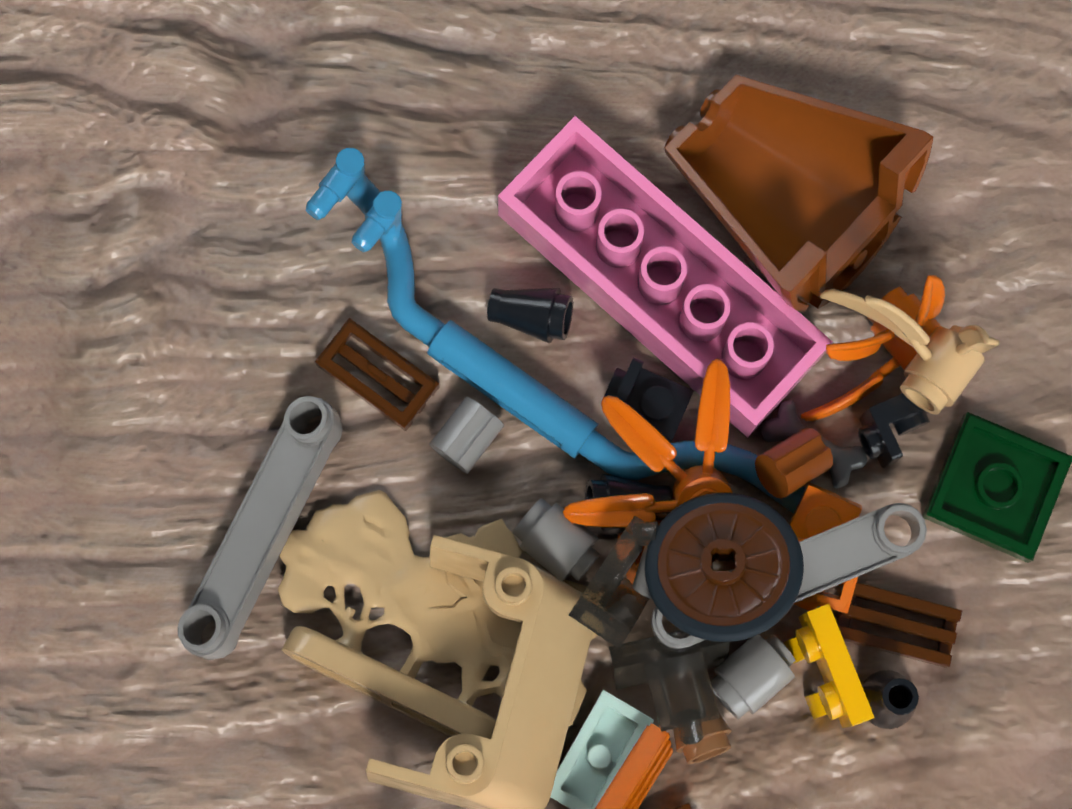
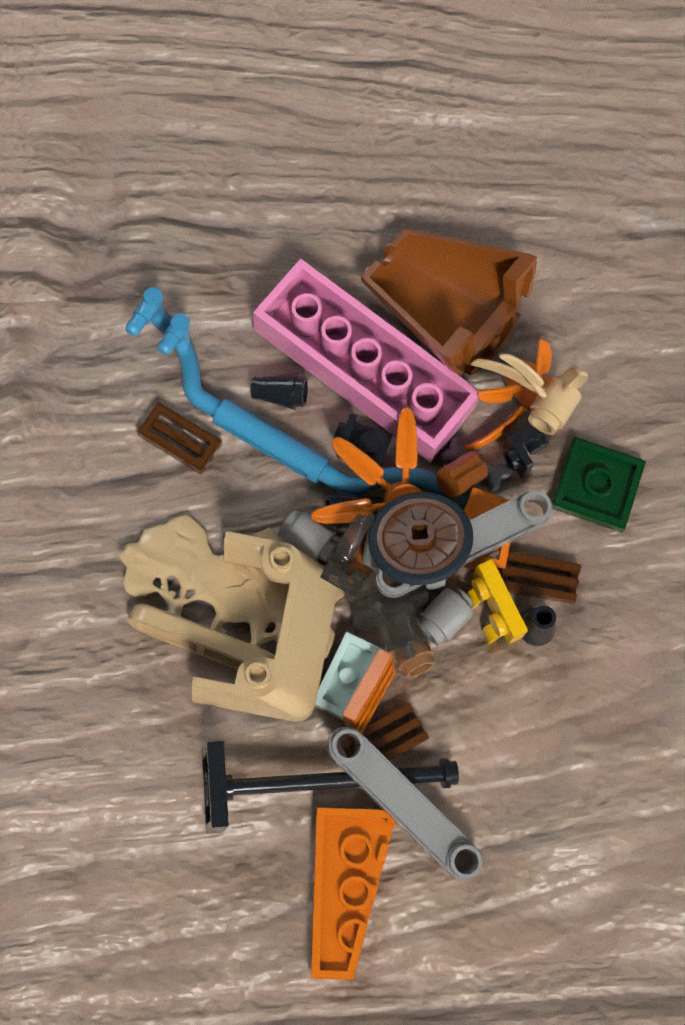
camera: 10 degrees left, 5 degrees down
(260, 528) = (107, 542): light grey piece -> none
(466, 434) = (242, 472): light grey piece -> none

